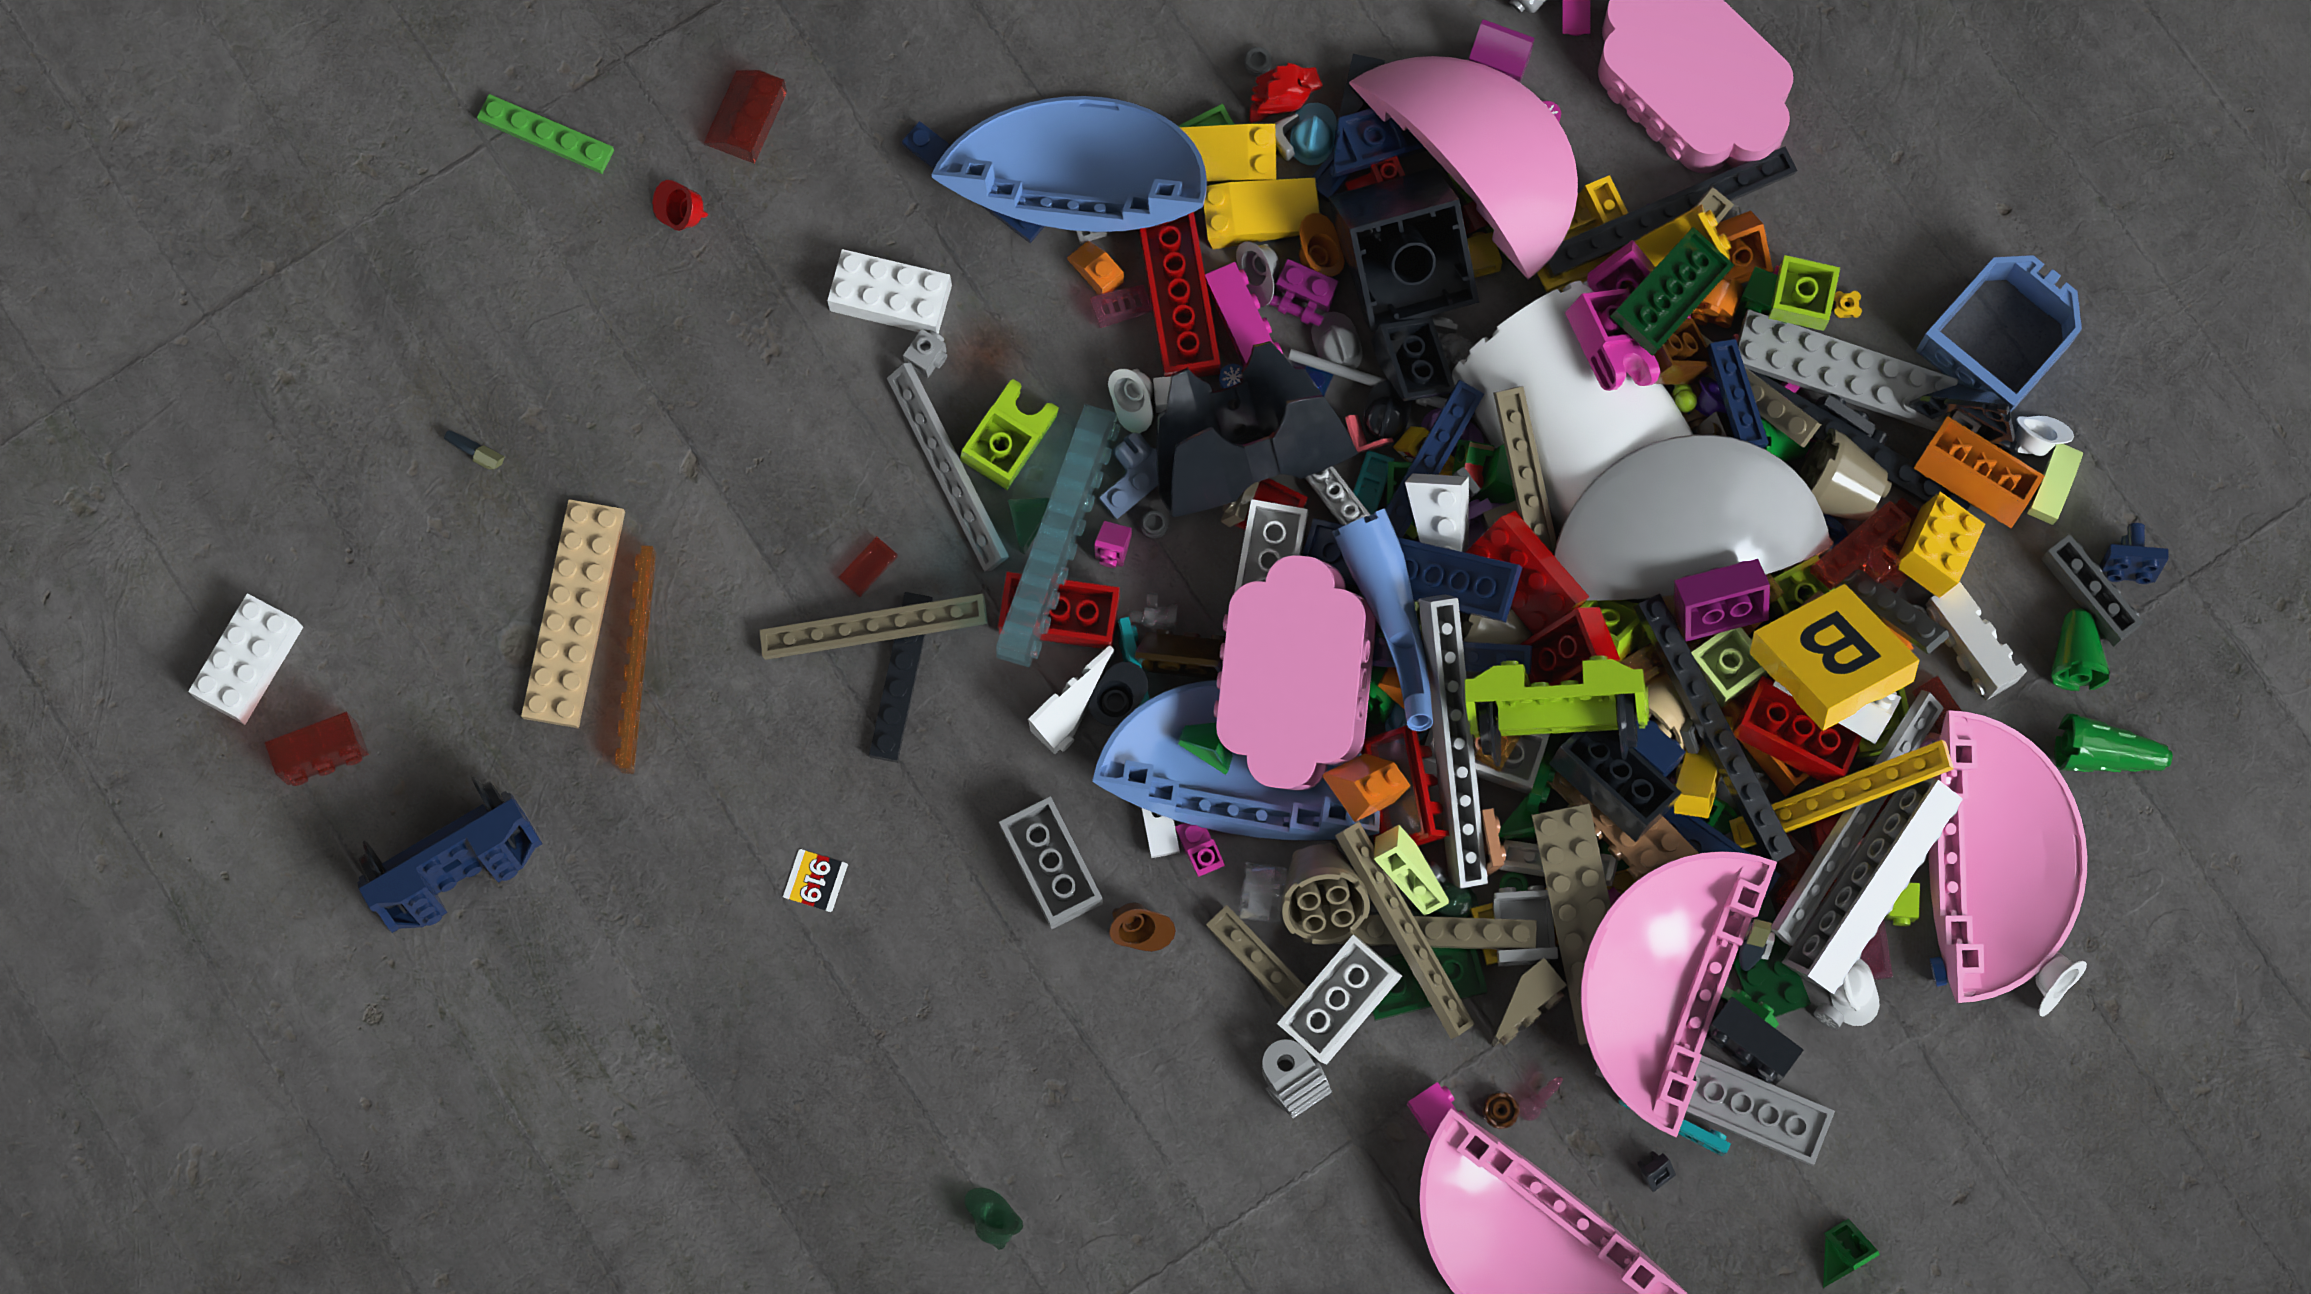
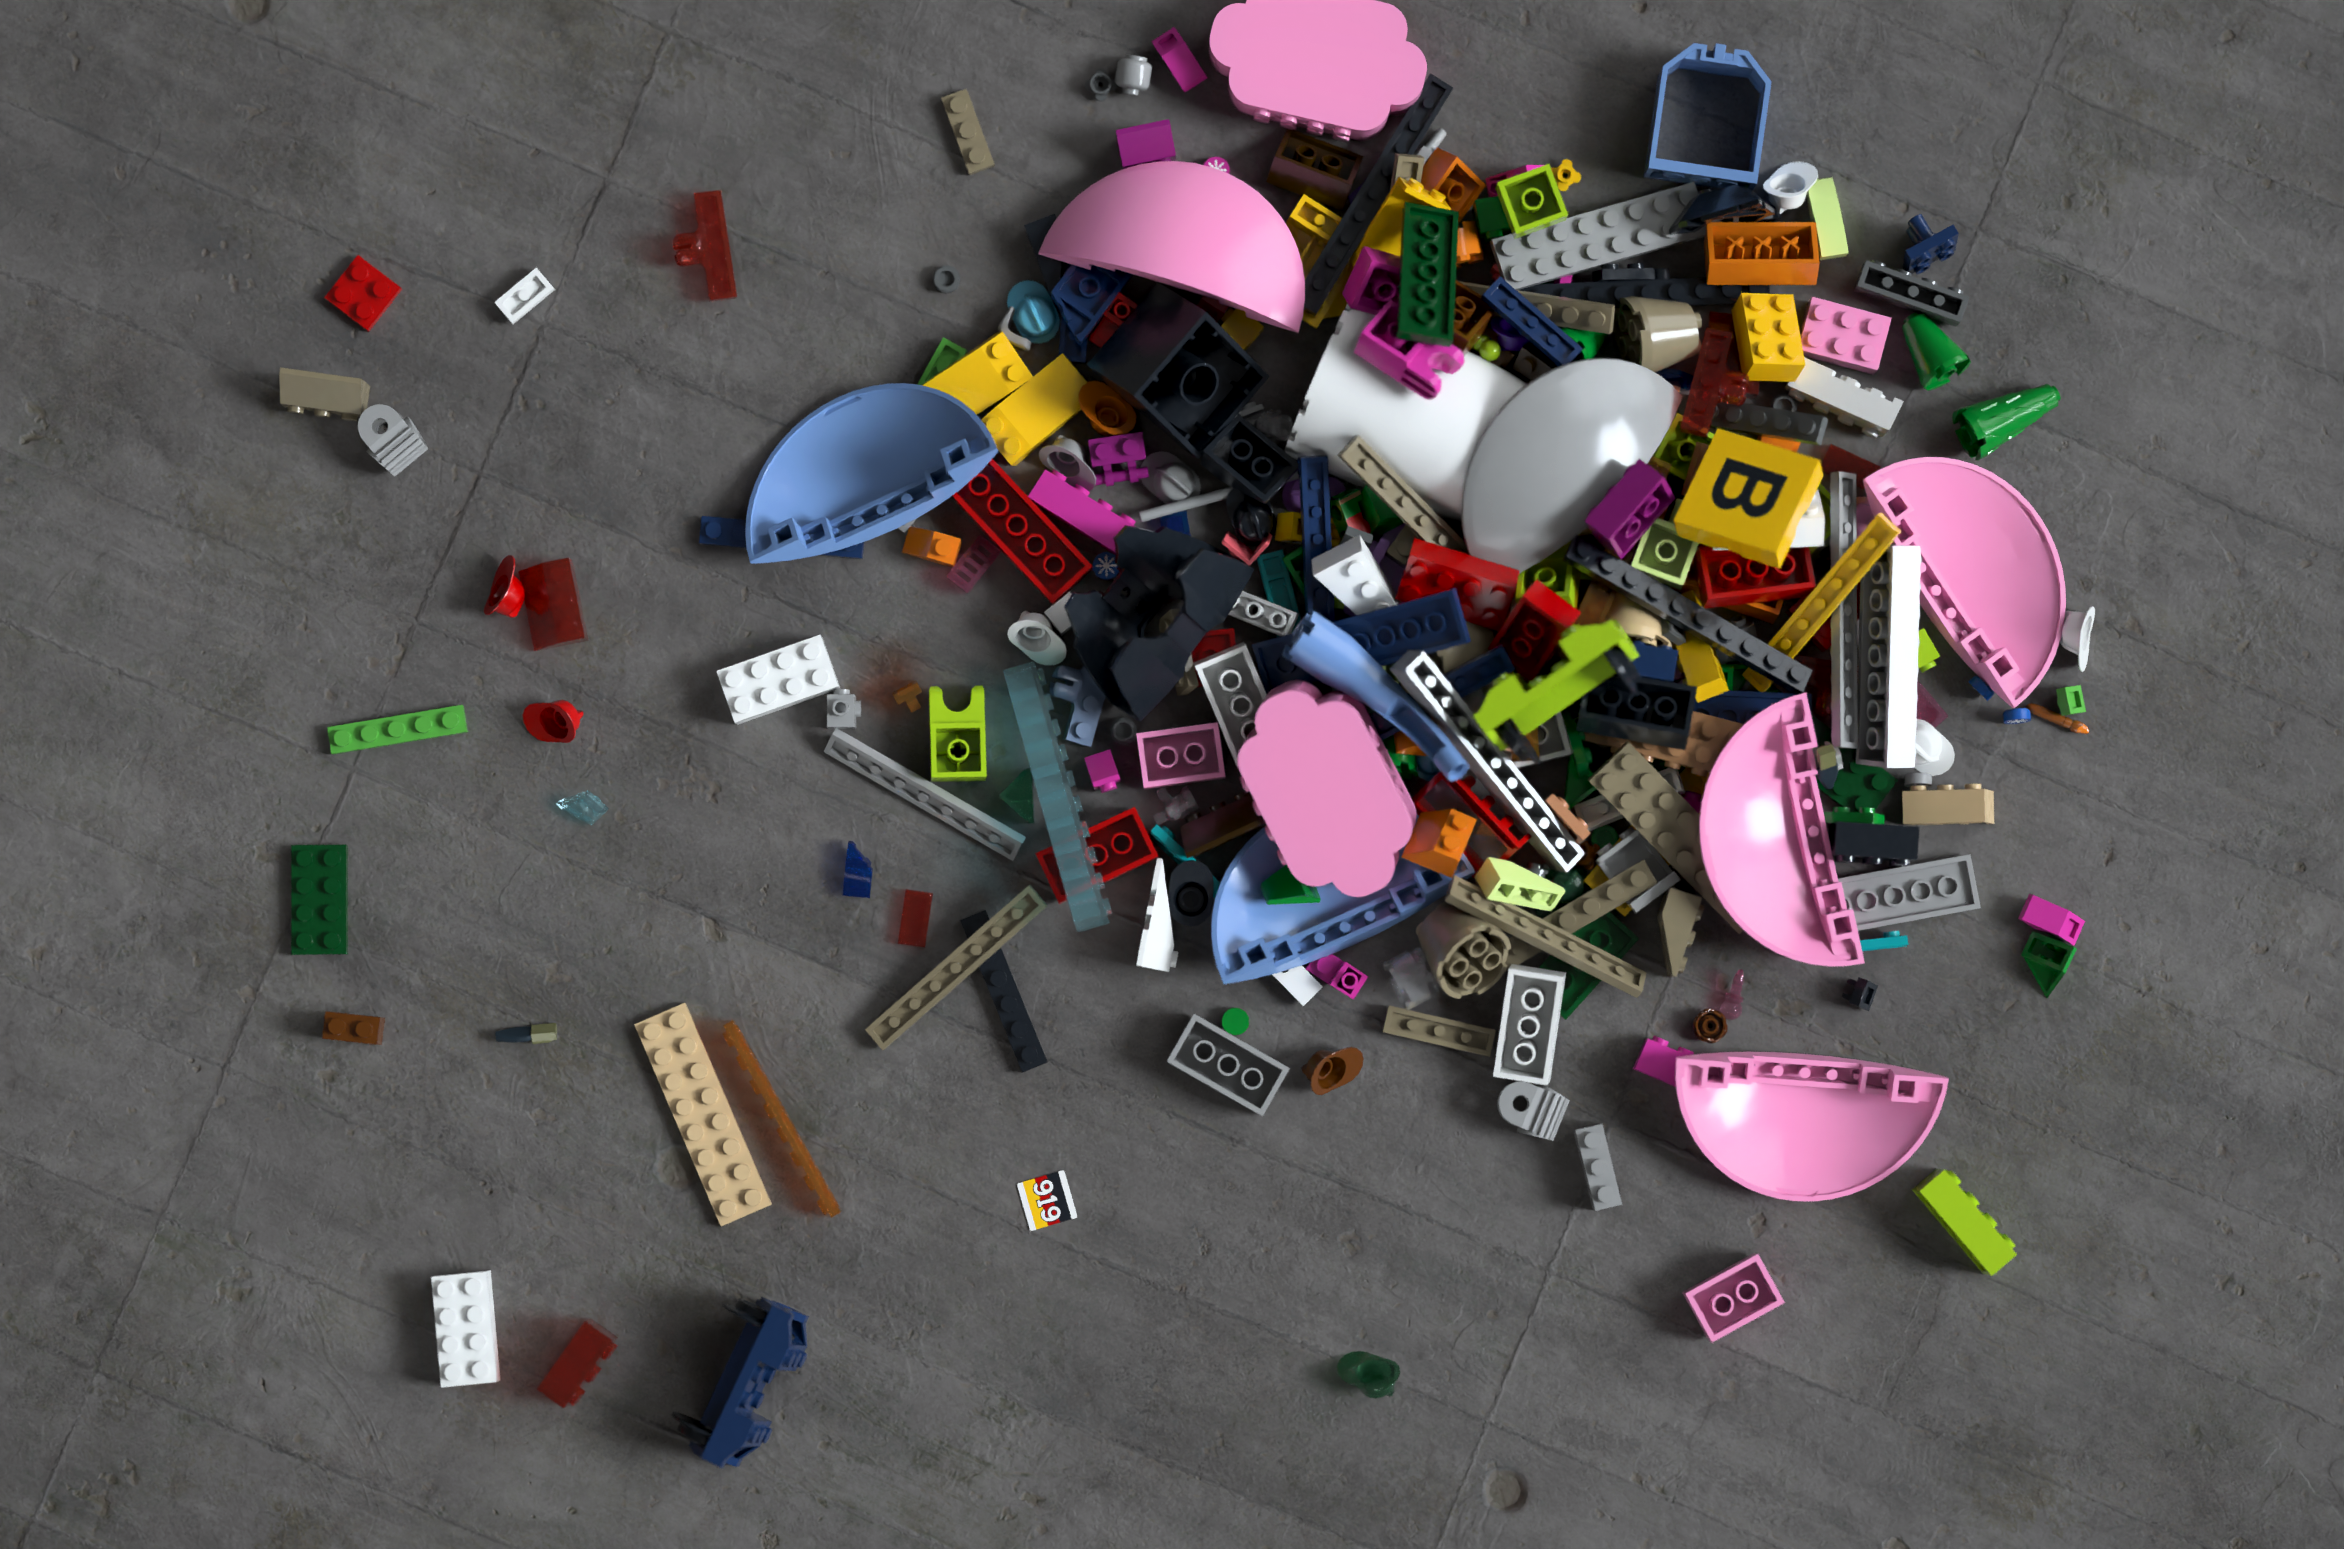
camera: 35 degrees left, 10 degrees up
(333, 349) = (353, 1028): none -> reddish brown brick
(382, 229) = (319, 899): none -> dark green plate
(654, 293) = (584, 806): none -> clear light blue piece
(715, 80) = (506, 591): none -> red piece
(844, 496) = (857, 873): none -> clear blue slope
(990, 375) = (908, 694): none -> clear orange tile
(1083, 832) = (1235, 1021): none -> green tile
(1188, 573) = (1180, 755): none -> bright pink brick
(1282, 90) = (987, 294): red piece -> none
(1317, 1168) = (1597, 1167): none -> light grey brick
(1487, 891) = (1590, 856): none -> reddish brown plate
(1632, 164) = (1314, 169): none -> dark brown slope
(1739, 208) = (1432, 144): none -> light grey bar
(1843, 1054) = (1948, 805): none -> tan wedge
(1872, 1215) = (2051, 919): none -> dark pink slope
(1955, 1017) = (2016, 716): none -> blue tile
(1991, 1045) = (2054, 717): none -> dark orange piece
(2008, 589) = (1844, 335): none -> bright pink brick
(2013, 1034) = (2070, 700): none -> bright green plate

